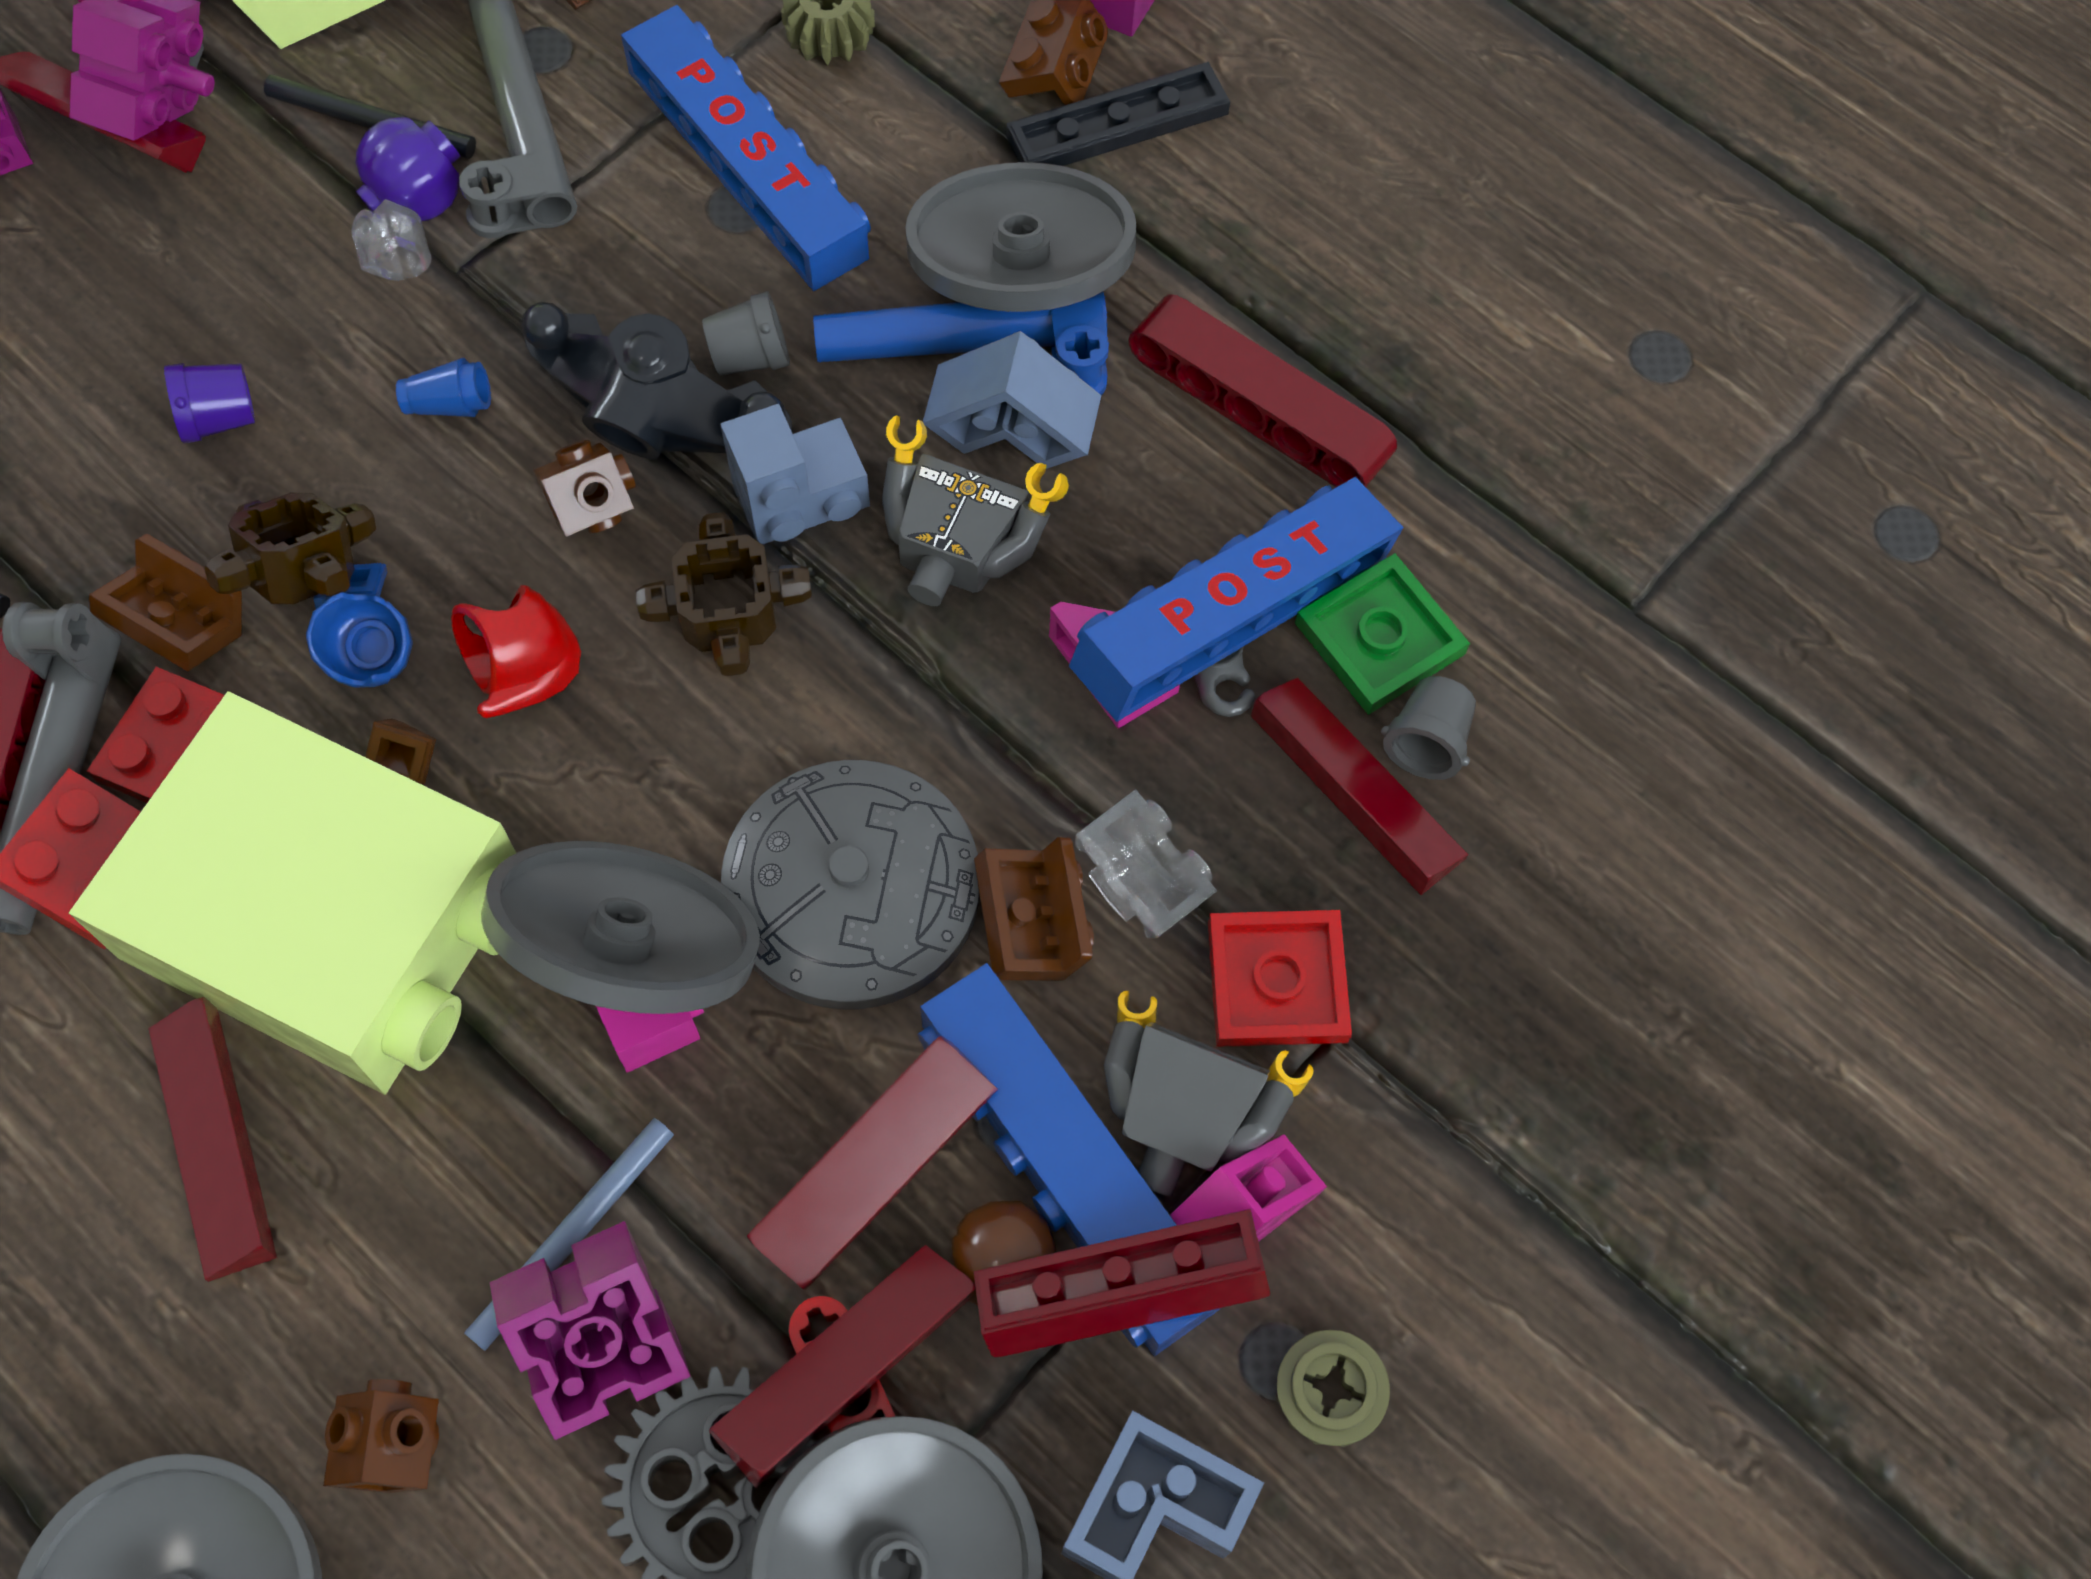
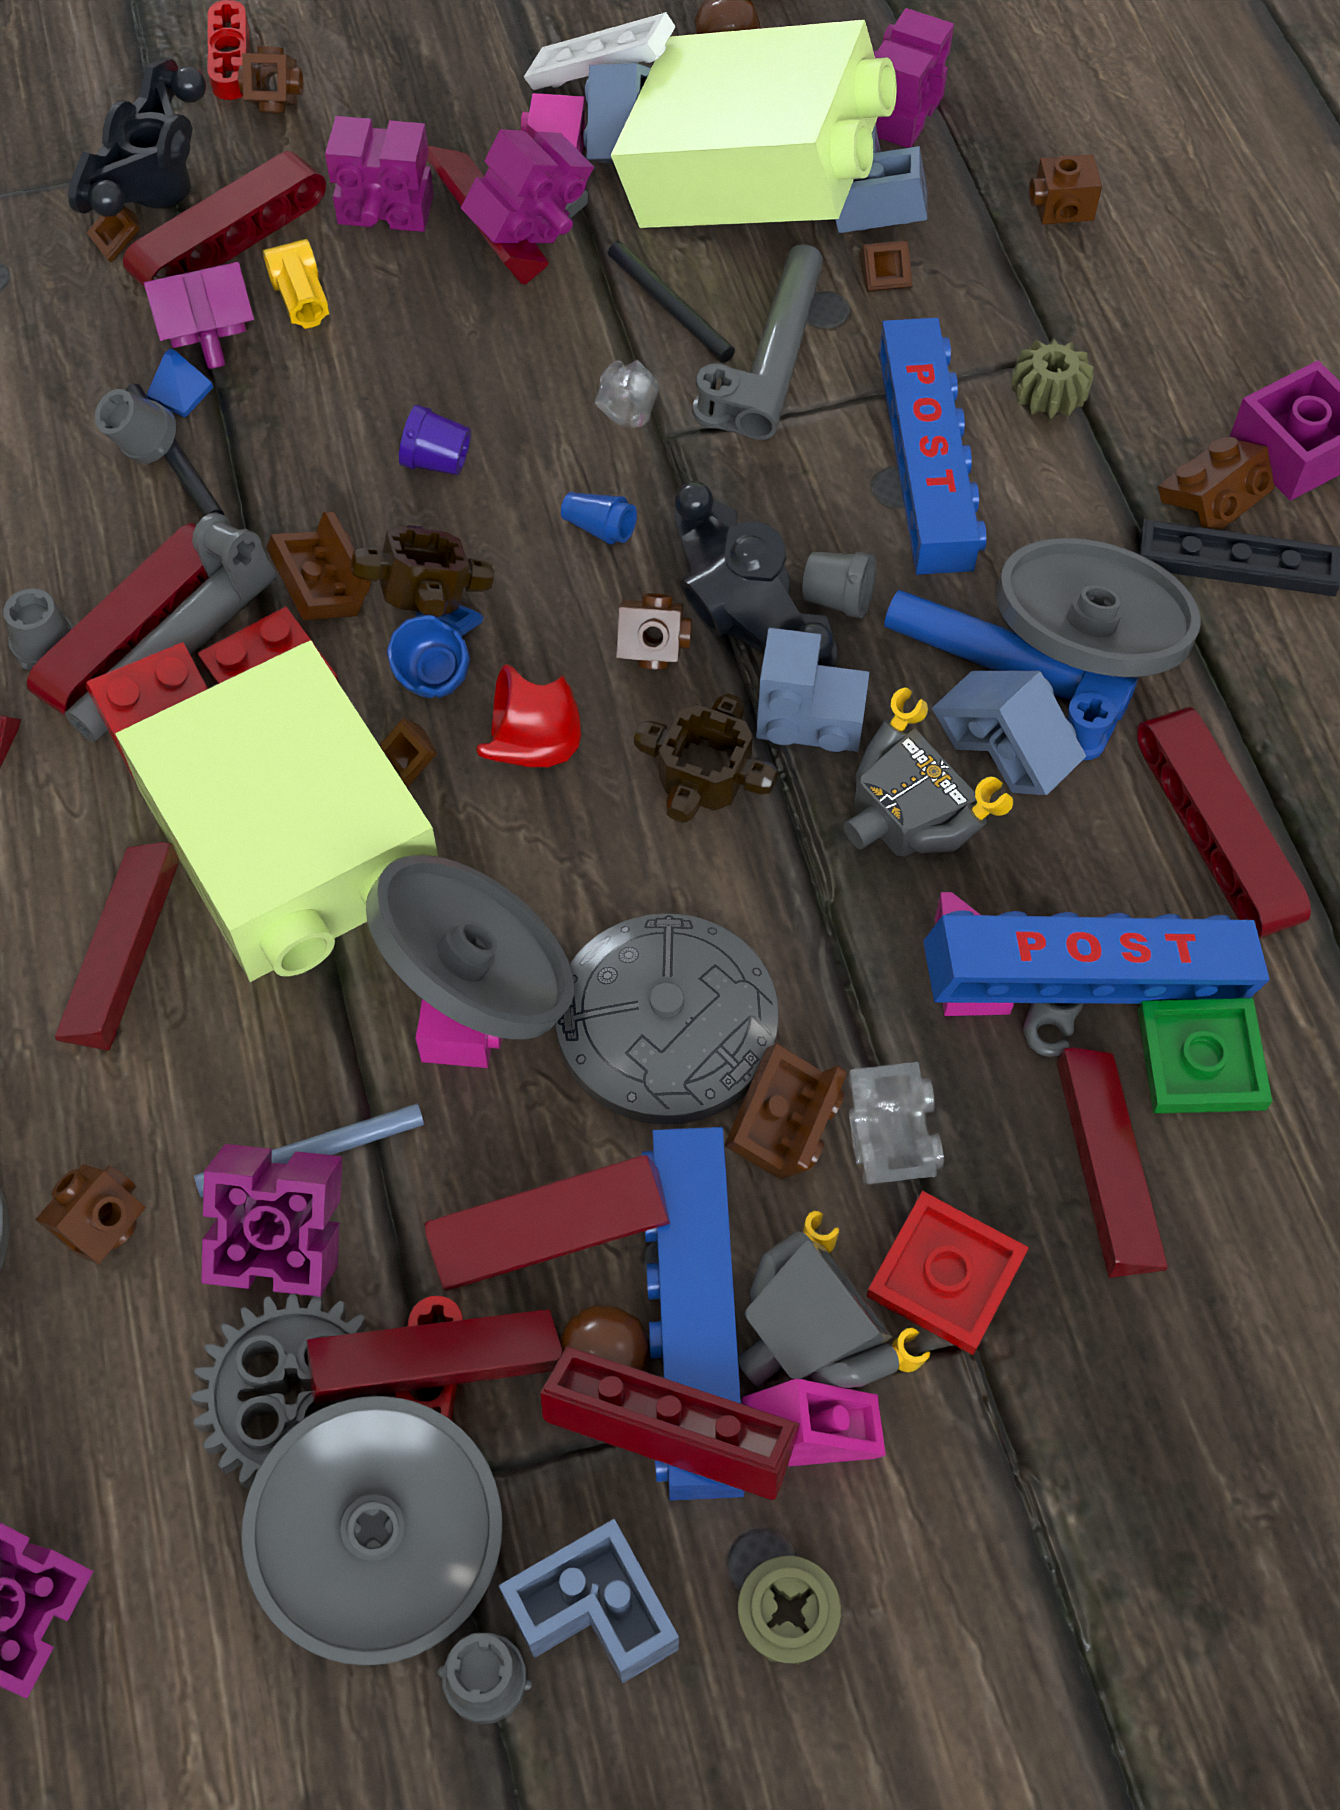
camera: 35 degrees right, 5 degrees down
(407, 167) = (671, 346): dark purple plant -> none
(1432, 729) = (1196, 1151): dark grey piece -> none

